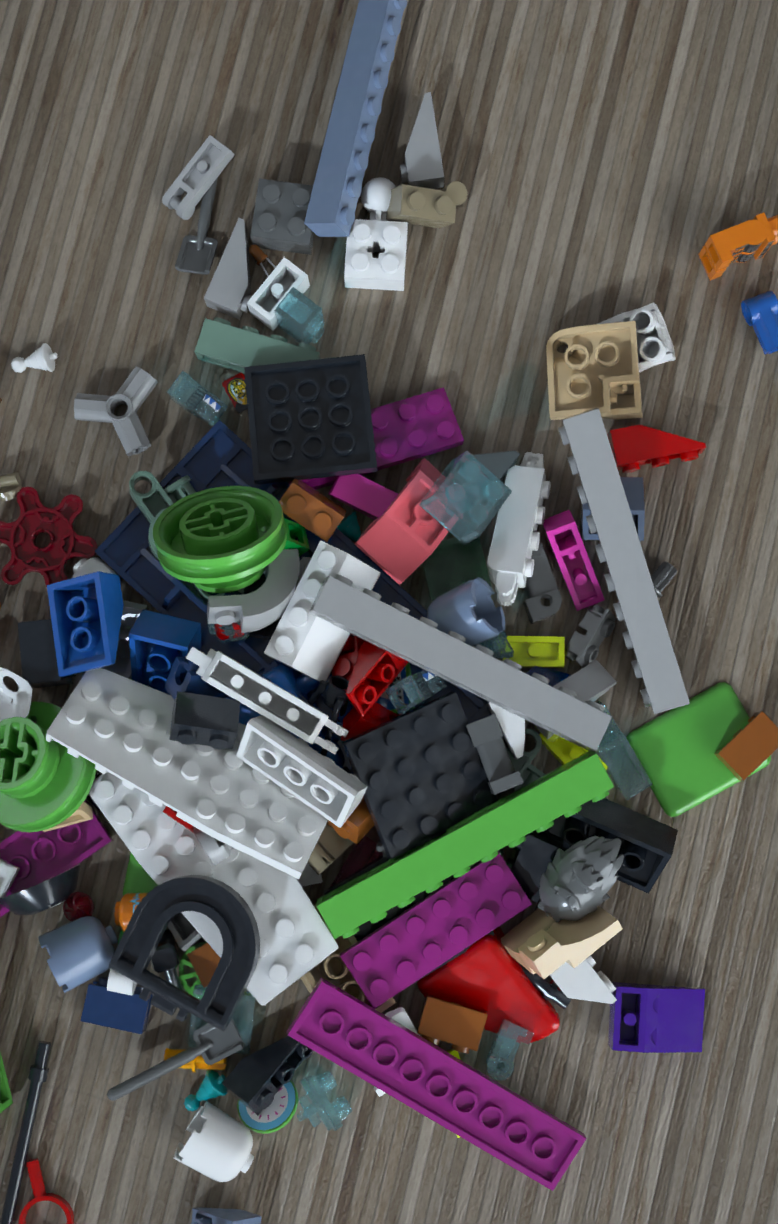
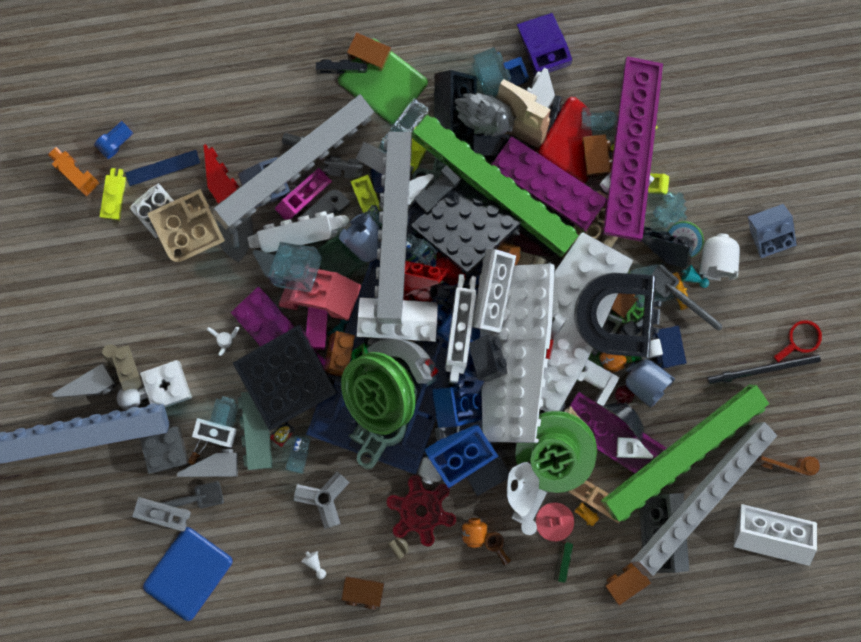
camera: 120 degrees left, 0 degrees up
(102, 185) = (187, 574): none -> blue piece
(115, 881) = (599, 378): none -> white piece
(368, 1101) = (659, 184): none -> neon yellow slope
(406, 361) = (224, 339): none -> white plant
(543, 437) = (236, 239): none -> dark grey shield
(630, 954) = (517, 71): none -> blue panel
(646, 916) = (490, 71): none -> clear light blue brick
(684, 291) = (113, 195): none -> neon yellow hinge
(696, 377) = (162, 167): none -> dark blue sticker
(752, 673) = (326, 66): none -> black hinge

